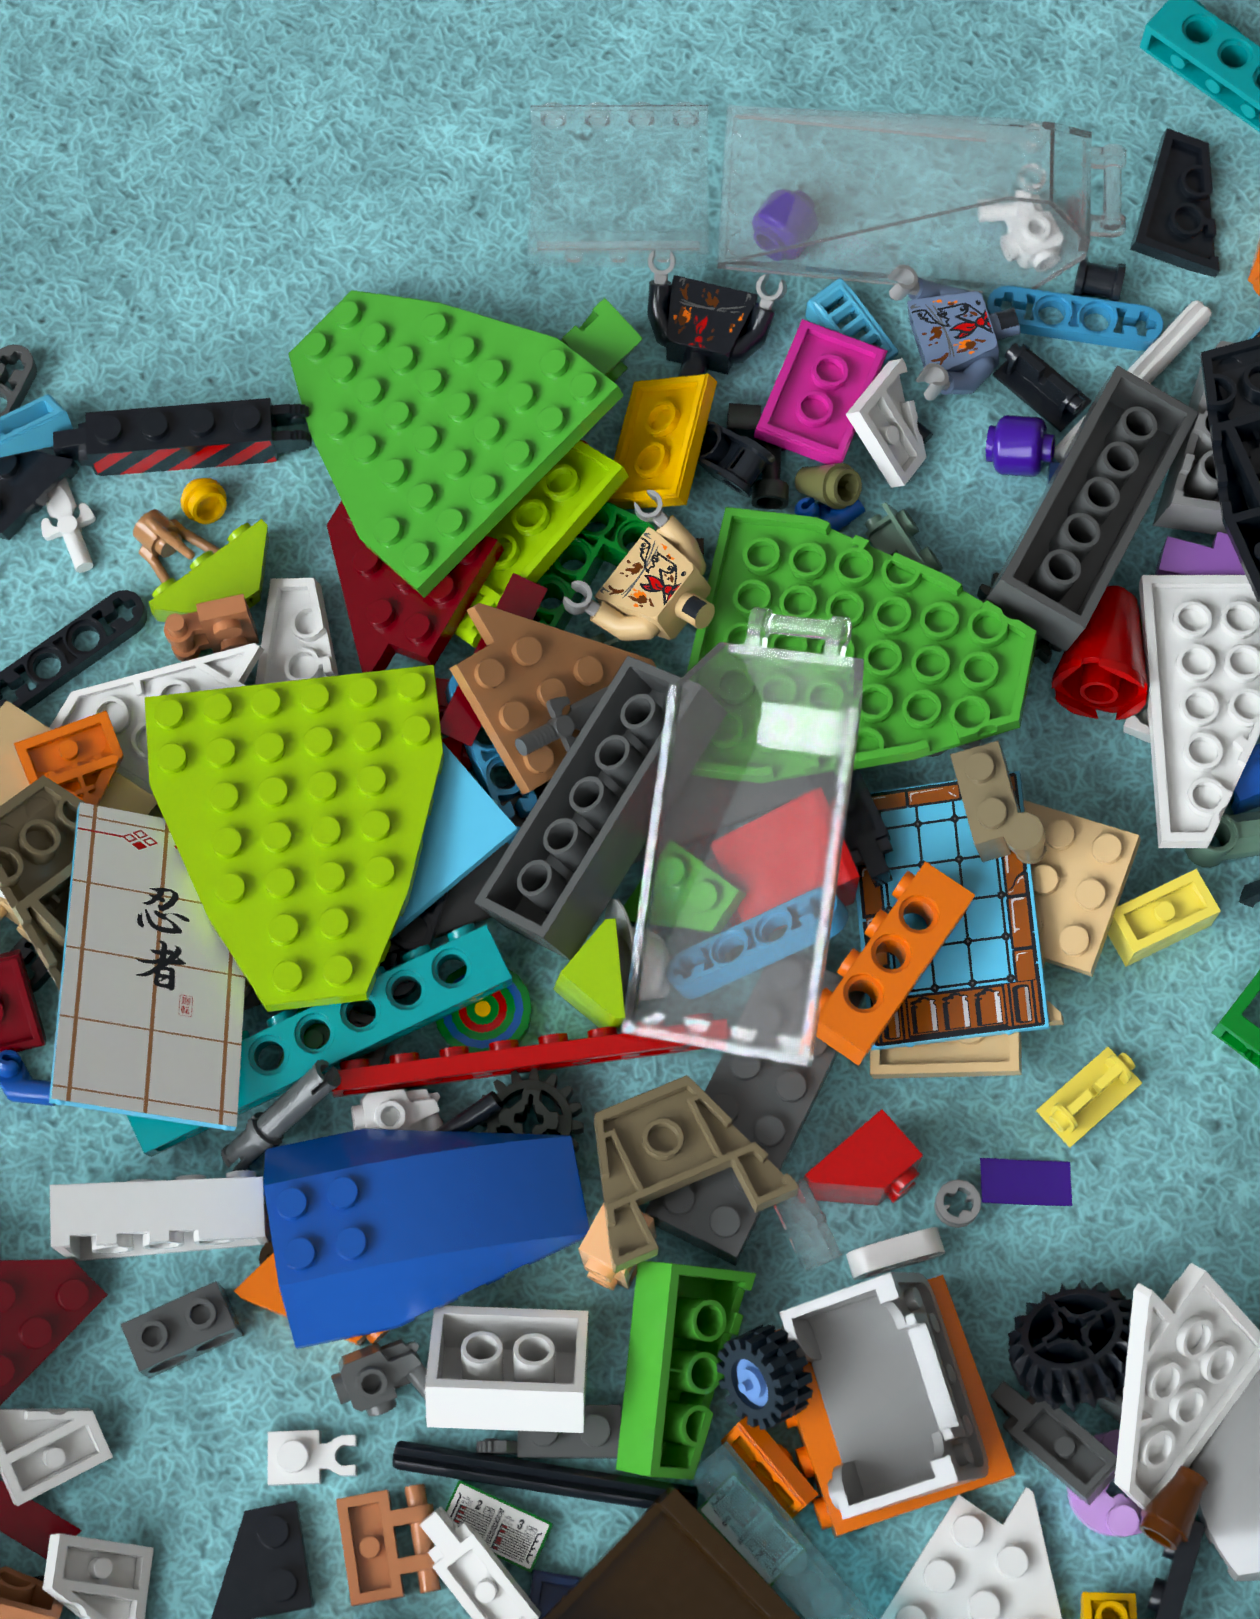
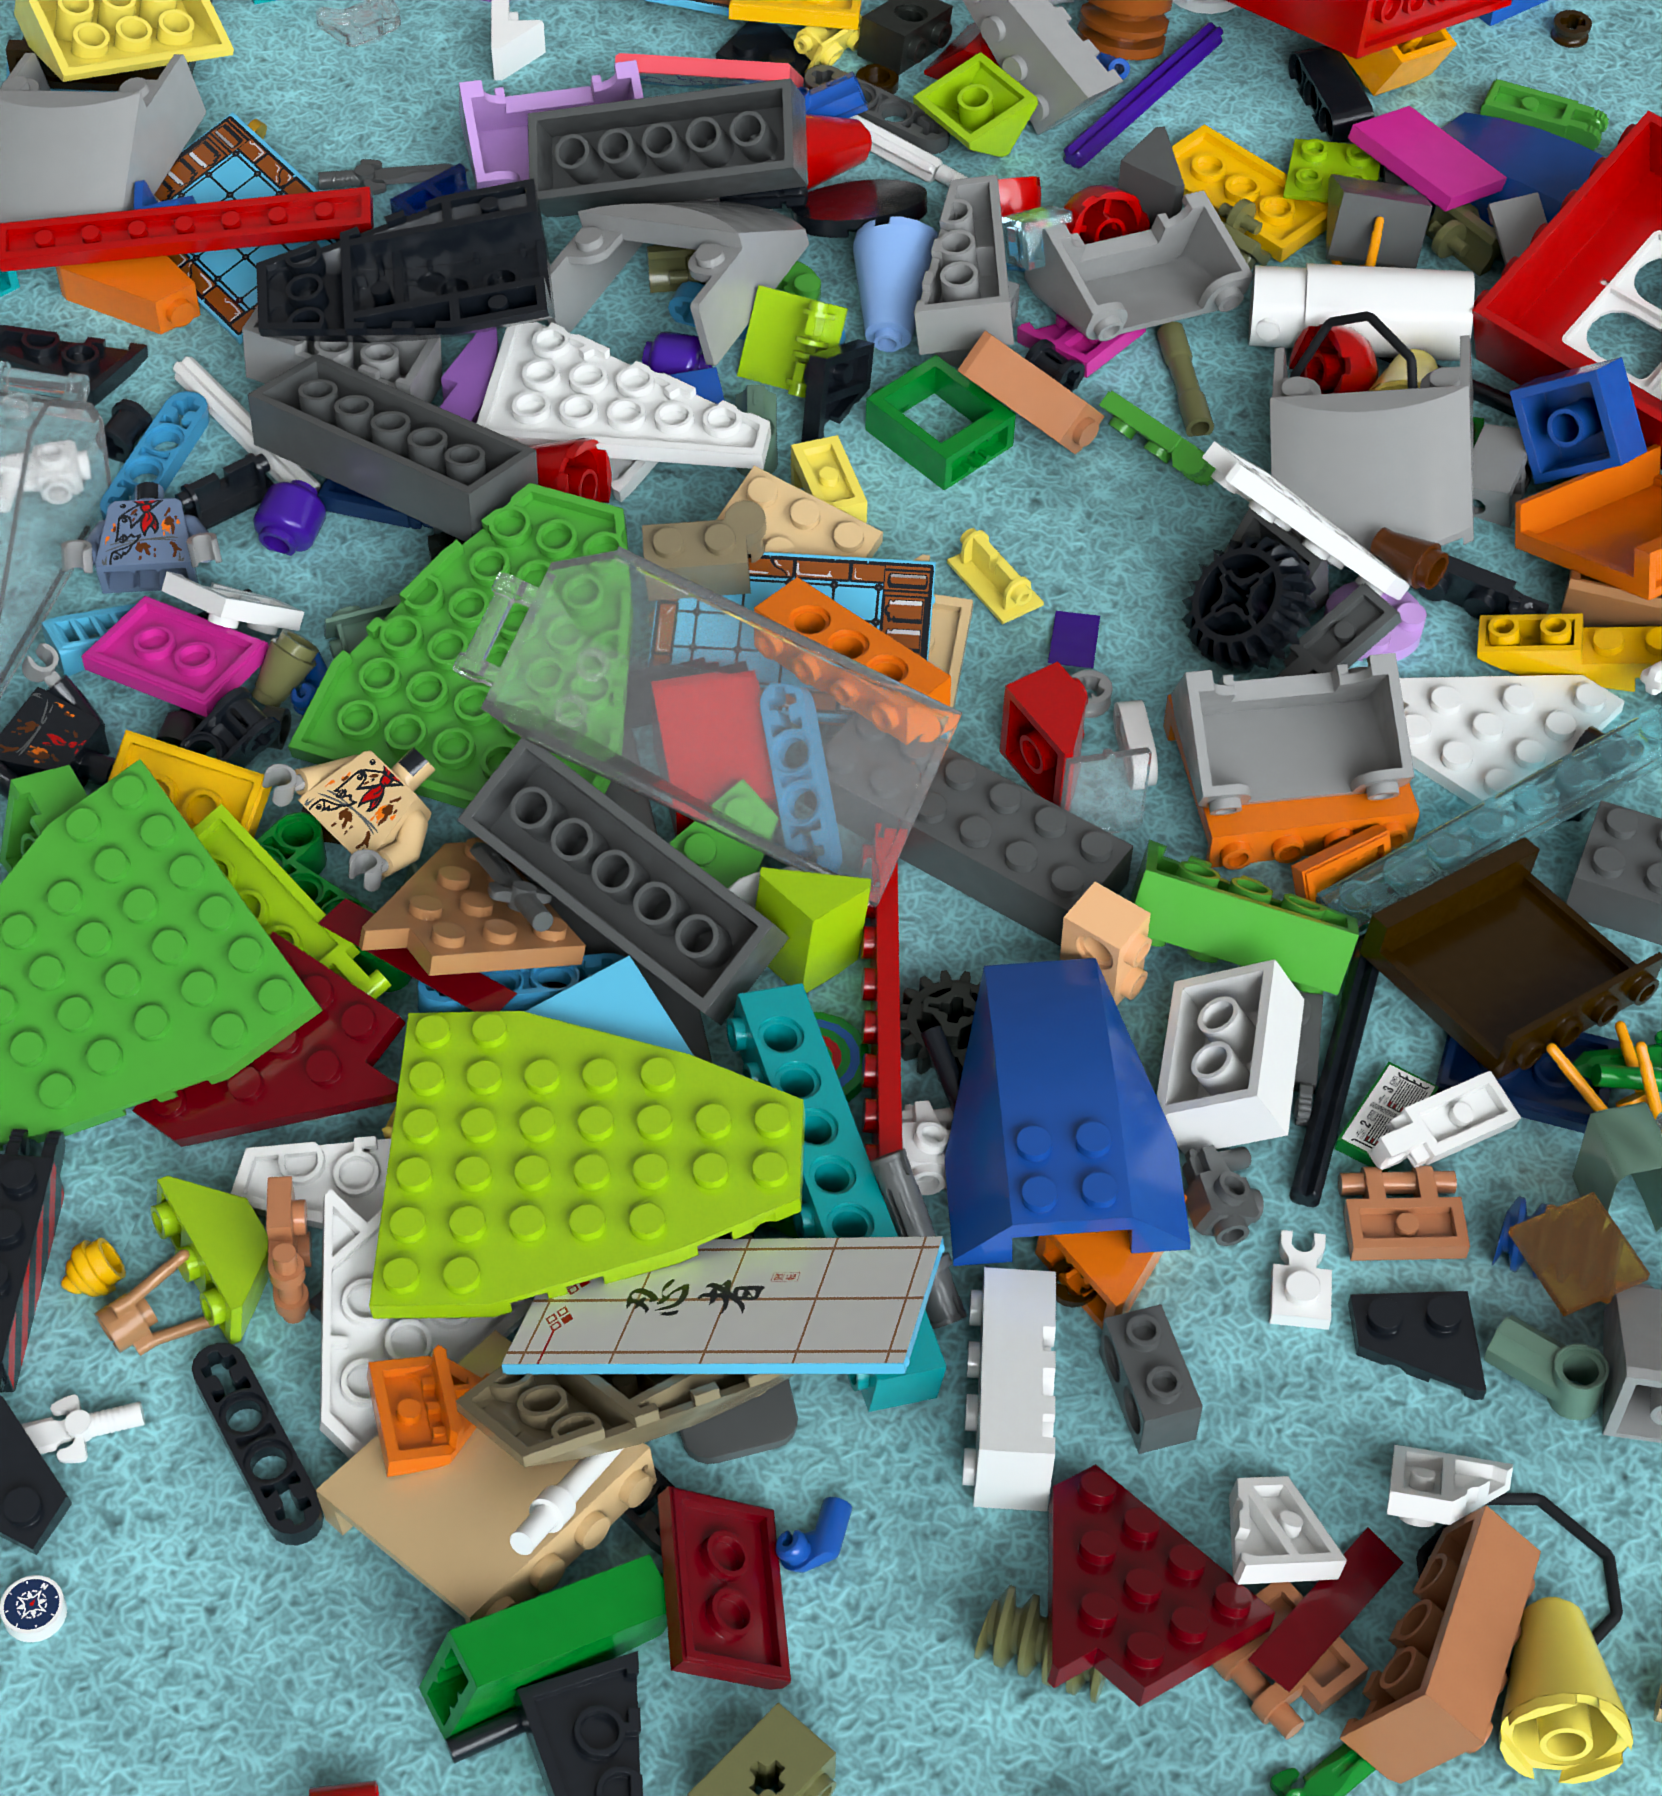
camera: 85 degrees left, 20 degrees down
(665, 1144) = (1018, 871): dark tan wing -> none
(764, 1376) = (1263, 829): black wheel -> none

